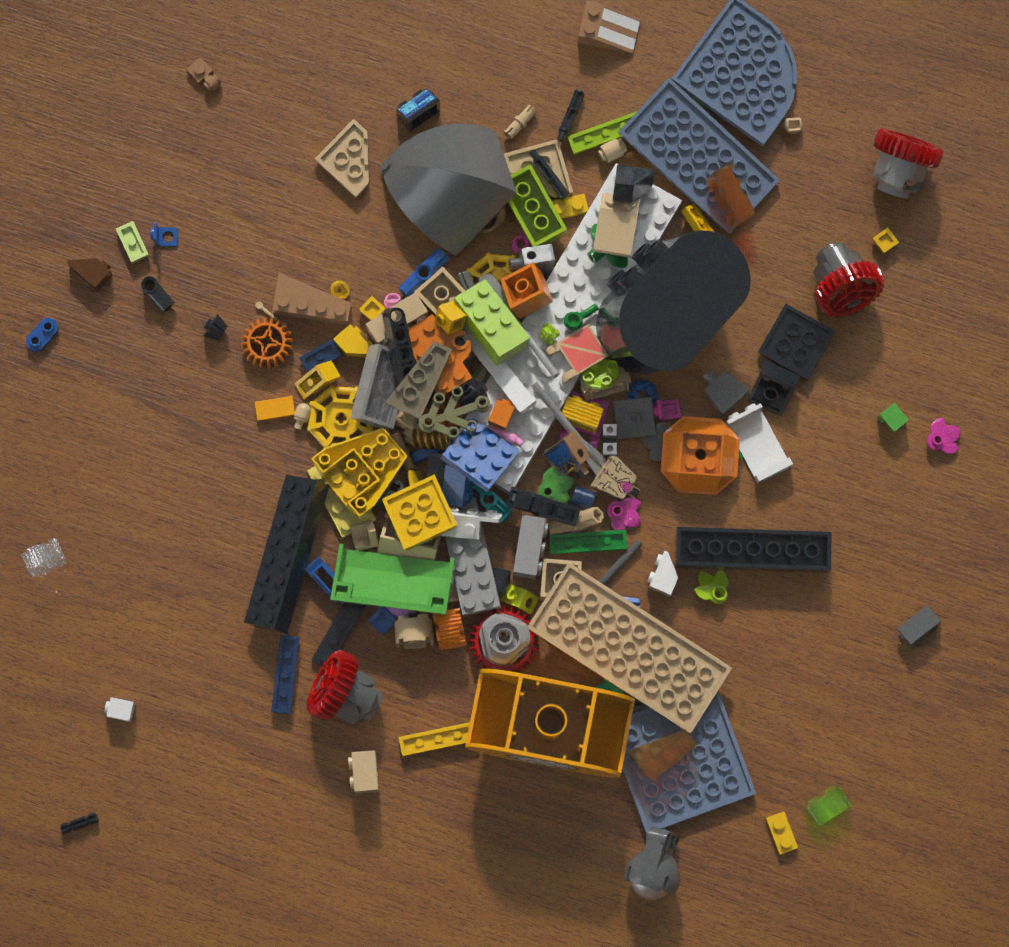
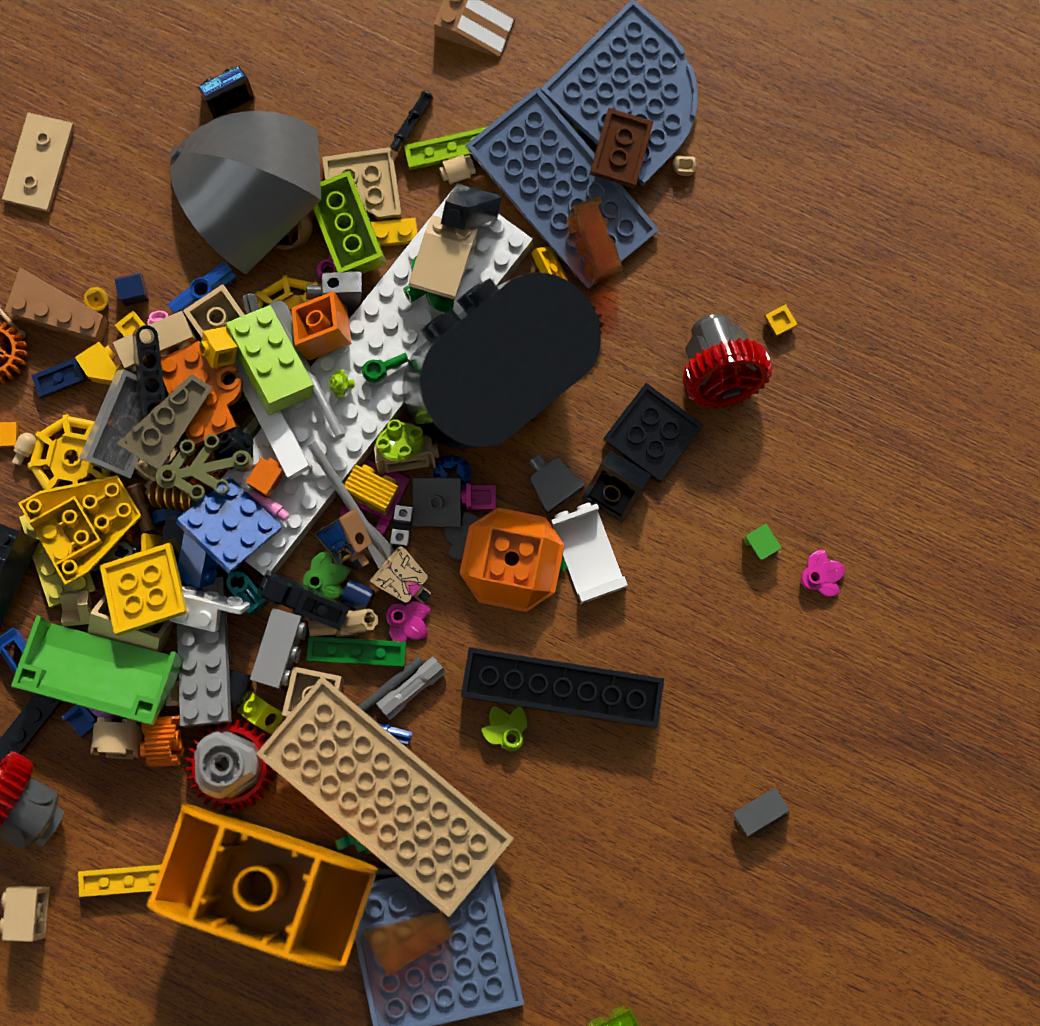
camera: 10 degrees right, 0 degrees up
(275, 185) = (38, 162): none -> tan plate
(317, 379) = (50, 405): yellow slope -> none
(347, 158) = (132, 140): tan plate -> none
(367, 278) = (131, 289): none -> dark blue piece
(520, 122) = (349, 121): tan pin -> none
(550, 176) = (374, 189): black piece -> none
(580, 350) = (378, 410): flag -> none
(644, 554) = (397, 699): none -> light grey axle
(665, 575) = (446, 708): white slope -> none
(742, 119) = (621, 148): none -> reddish brown plate
(903, 162) = (814, 225): piece -> none

